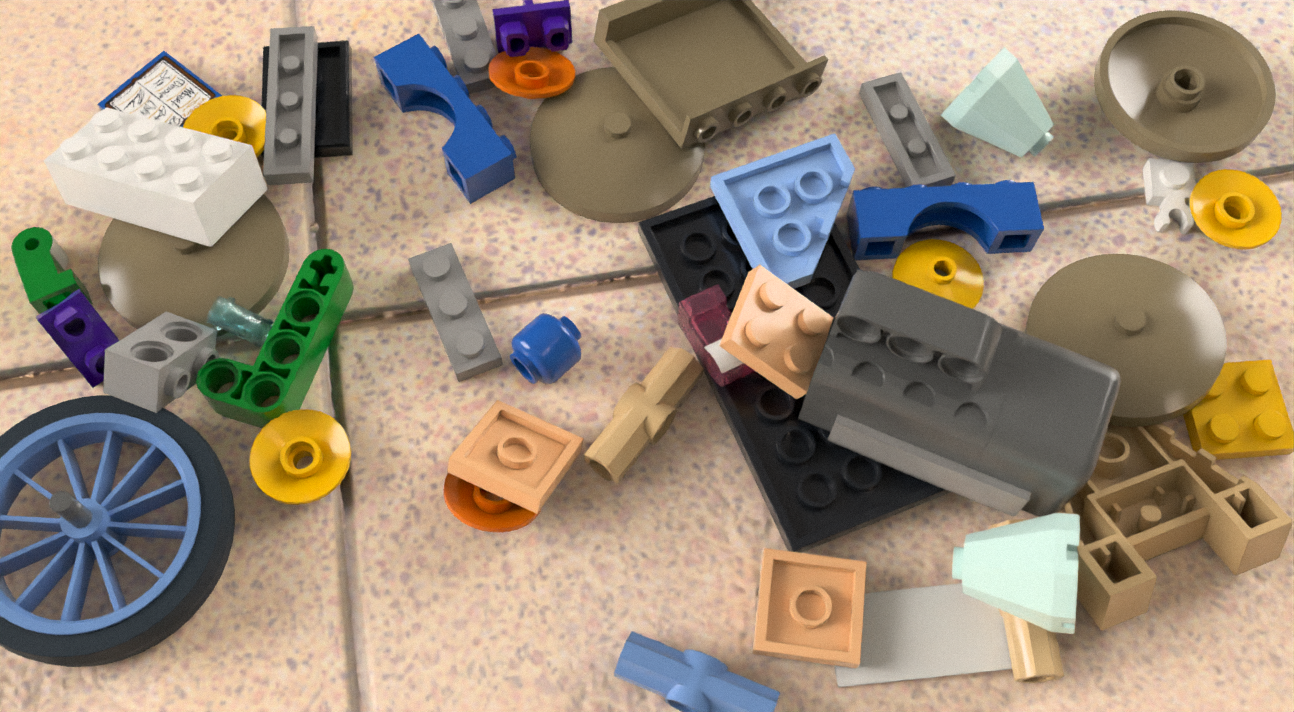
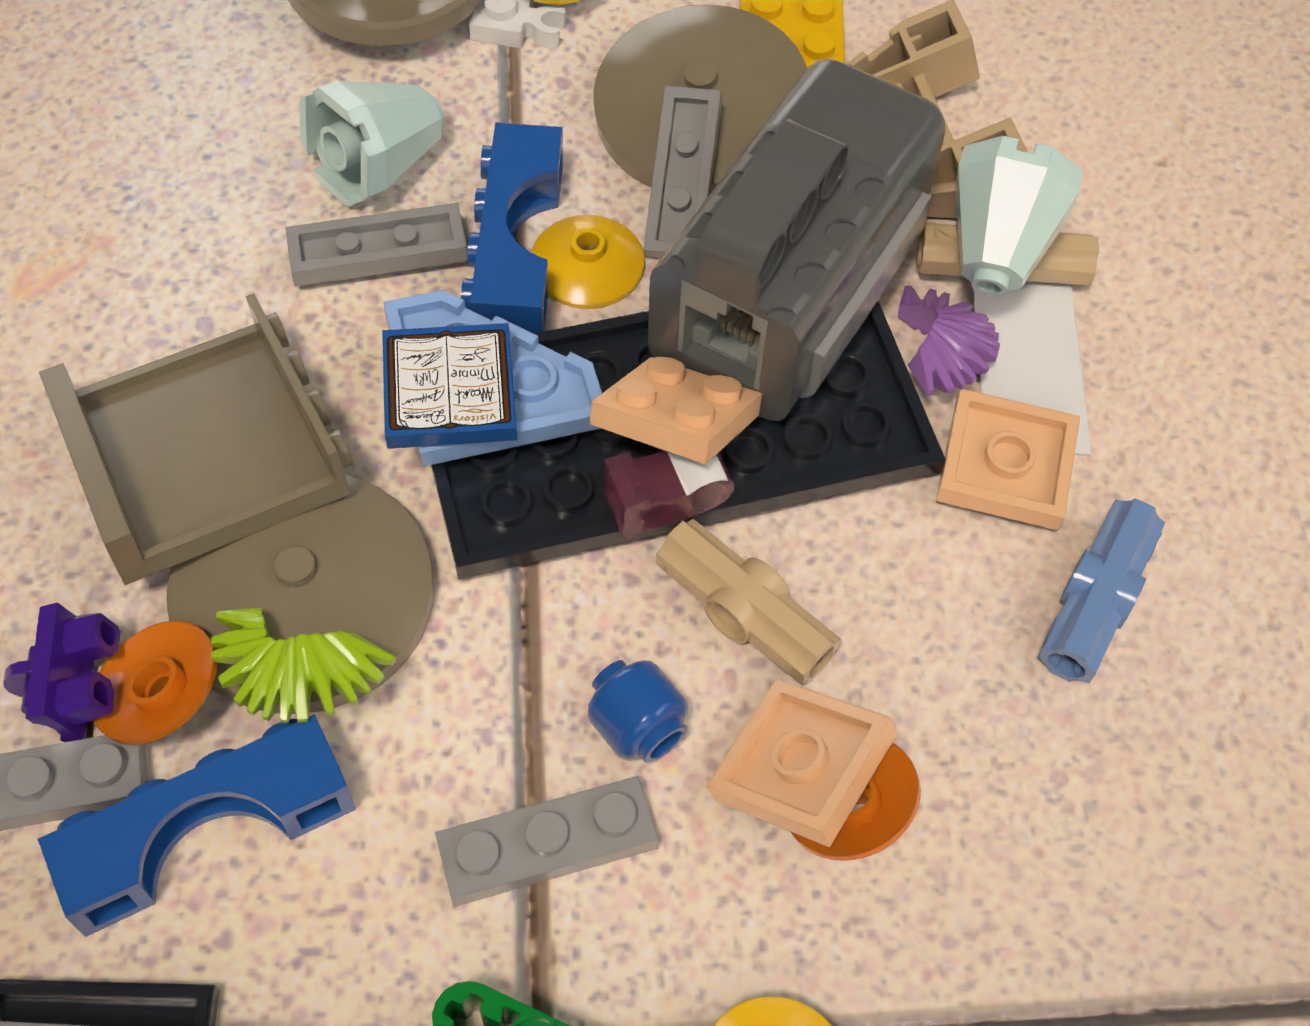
camera: 85 degrees left, 5 degrees down
(535, 136) = (291, 669): none -> lime hair
(766, 181) = (448, 385): none -> tile
(920, 557) = (955, 344): none -> medium lavender hair
(1053, 317) = (681, 163): none -> light grey plate

